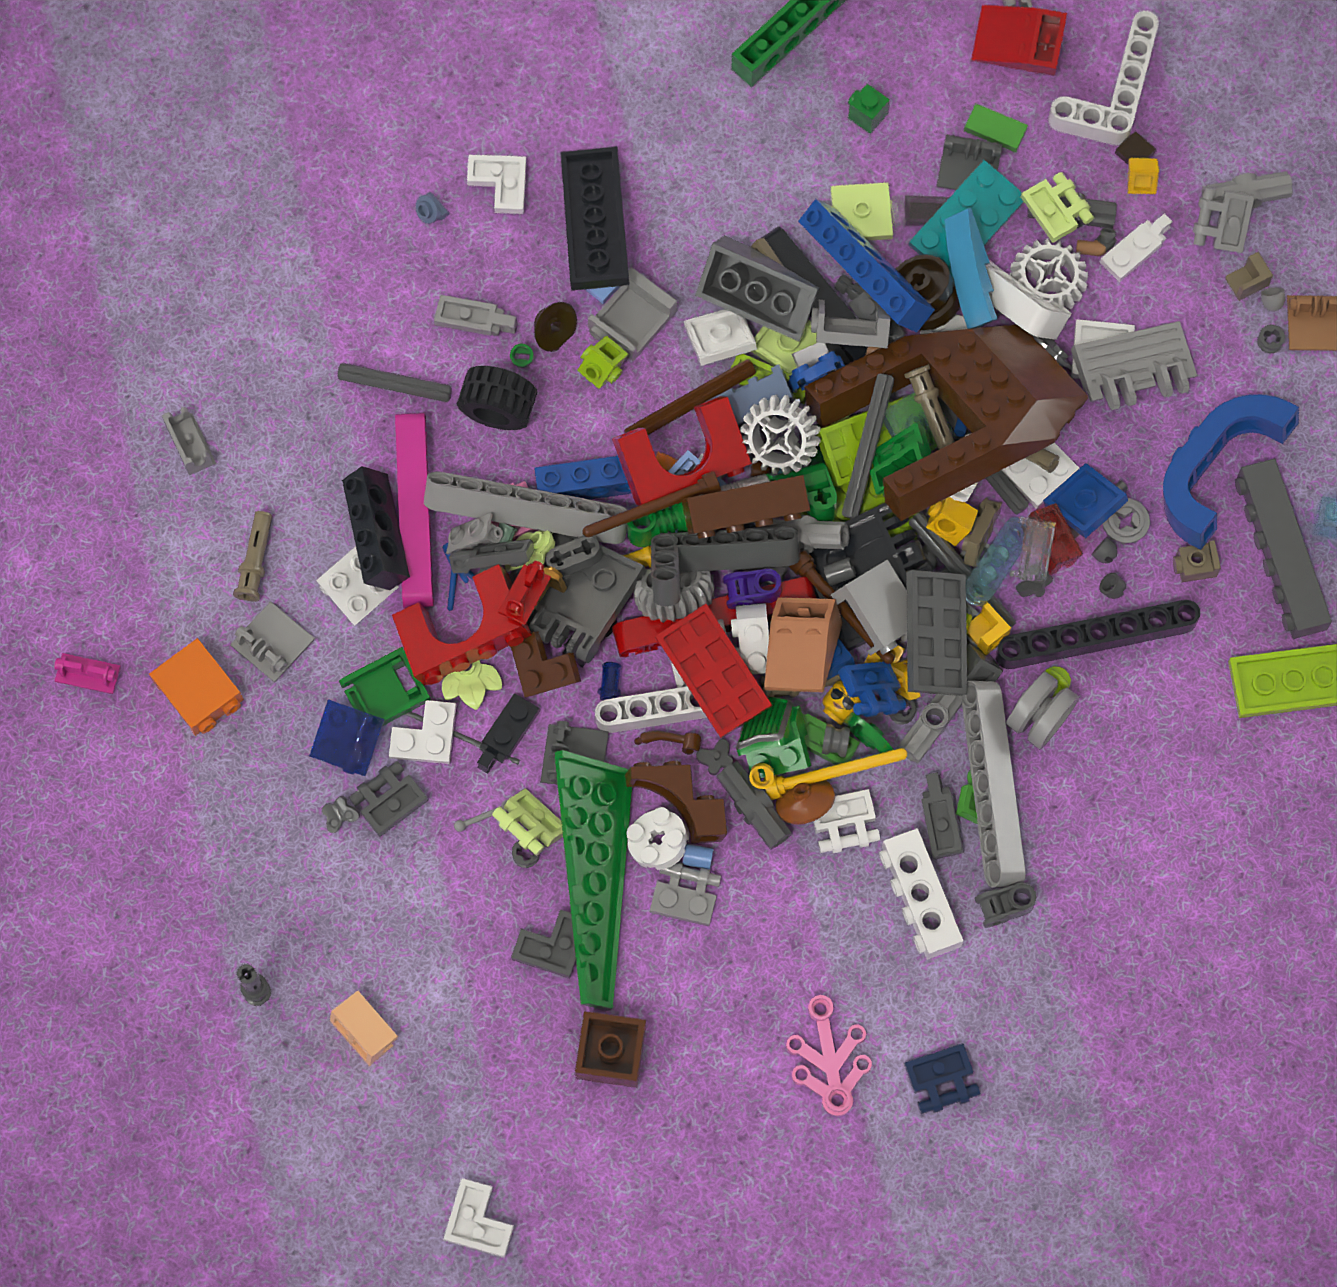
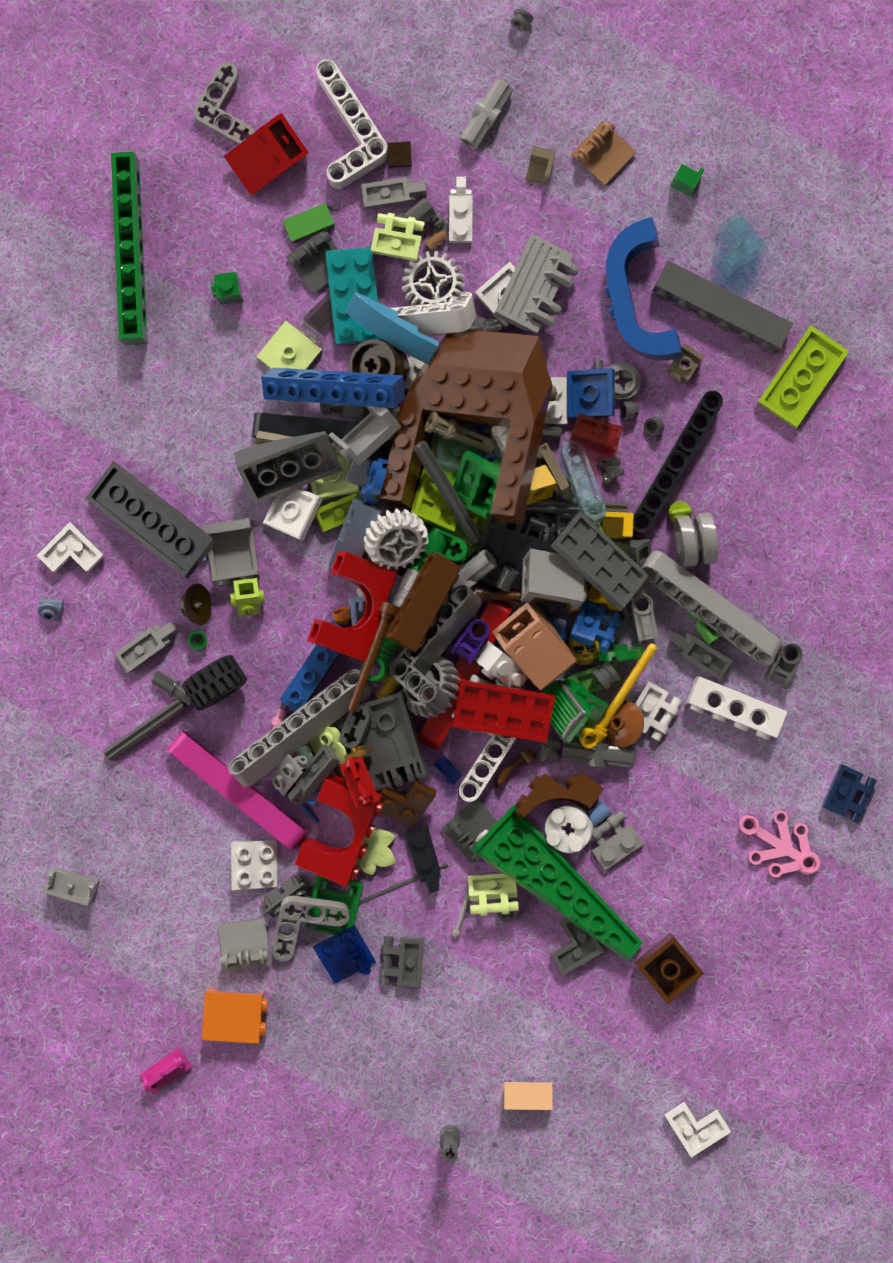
camera: 50 degrees left, 15 degrees up
(251, 569) = (188, 919): dark tan pin -> none
(338, 813) = (386, 997): dark grey piece -> none
(340, 637) = (293, 887): none -> dark grey hinge
(342, 659) = (295, 917): none -> light grey beam
(375, 528) = (231, 826): black brick -> none
(432, 742) = (390, 907): white plate -> none
(456, 369) = (171, 686): none -> dark grey axle
(695, 397) = (318, 567): reddish brown axle -> none
(1035, 549) = (597, 453): clear hinge -> none
(1094, 172) = (391, 192): none -> light grey hinge
(1142, 176) = (420, 165): yellow slope -> none
(1232, 220) = (499, 141): light grey plate -> none
(1268, 331) = (590, 181): dark grey bush -> none
(1273, 298) = (566, 163): light grey hinge -> none

